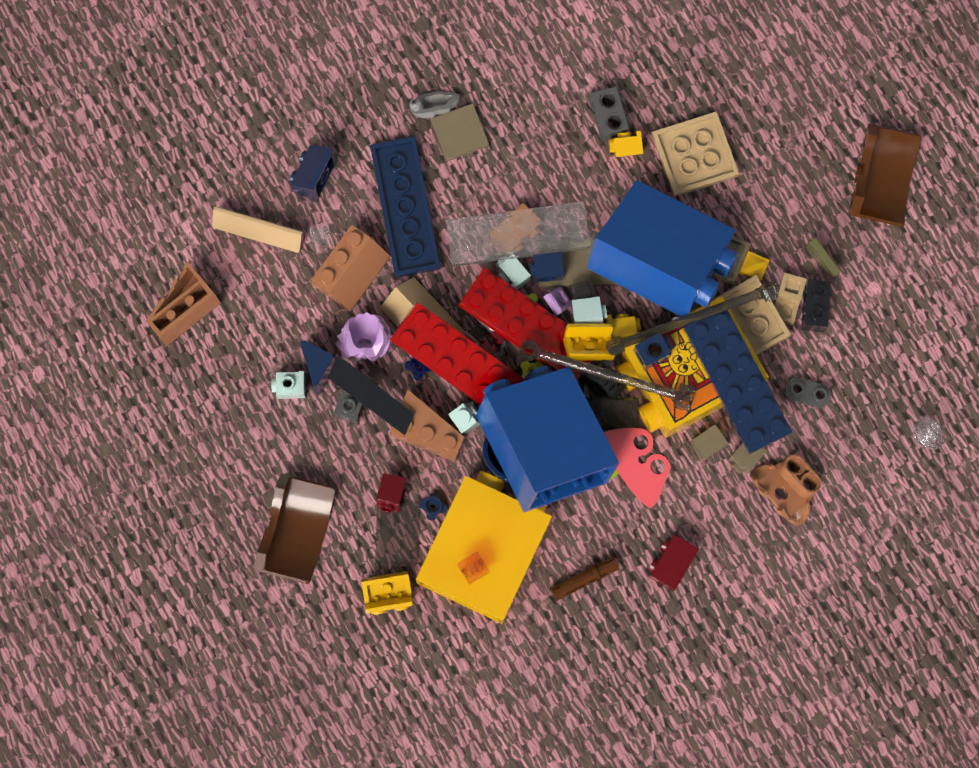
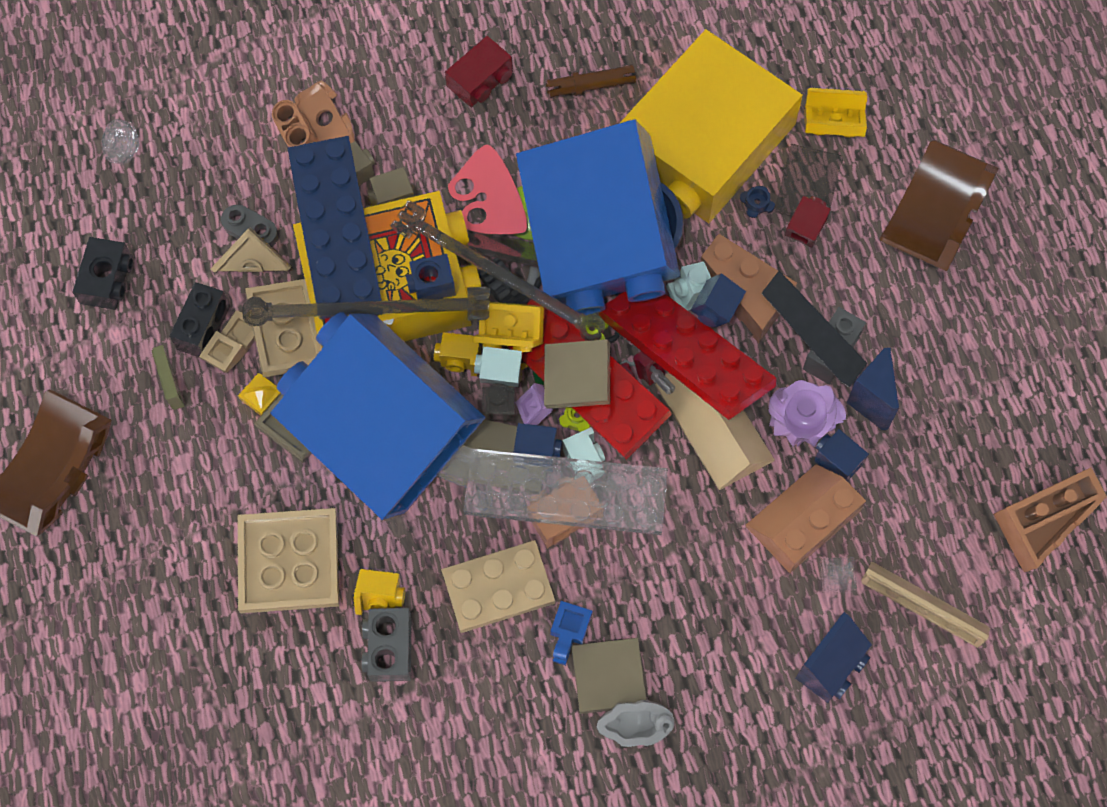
camera: 165 degrees left, 10 degrees down
(296, 390) = (915, 392): light aqua brick -> none
(333, 315) = (840, 455): none -> dark blue brick
(405, 207) = (711, 586): dark blue plate -> none
(444, 396) = (717, 301): none -> dark blue brick
(473, 568) = (730, 78): clear orange tile -> none
(492, 155) = (569, 626): none -> blue plate
(531, 316) = (577, 374): none -> dark tan tile
(548, 173) = (498, 586): none -> tan plate
(797, 368) = (251, 254): none -> tan tile
(905, 314) = (98, 258): none -> black brick

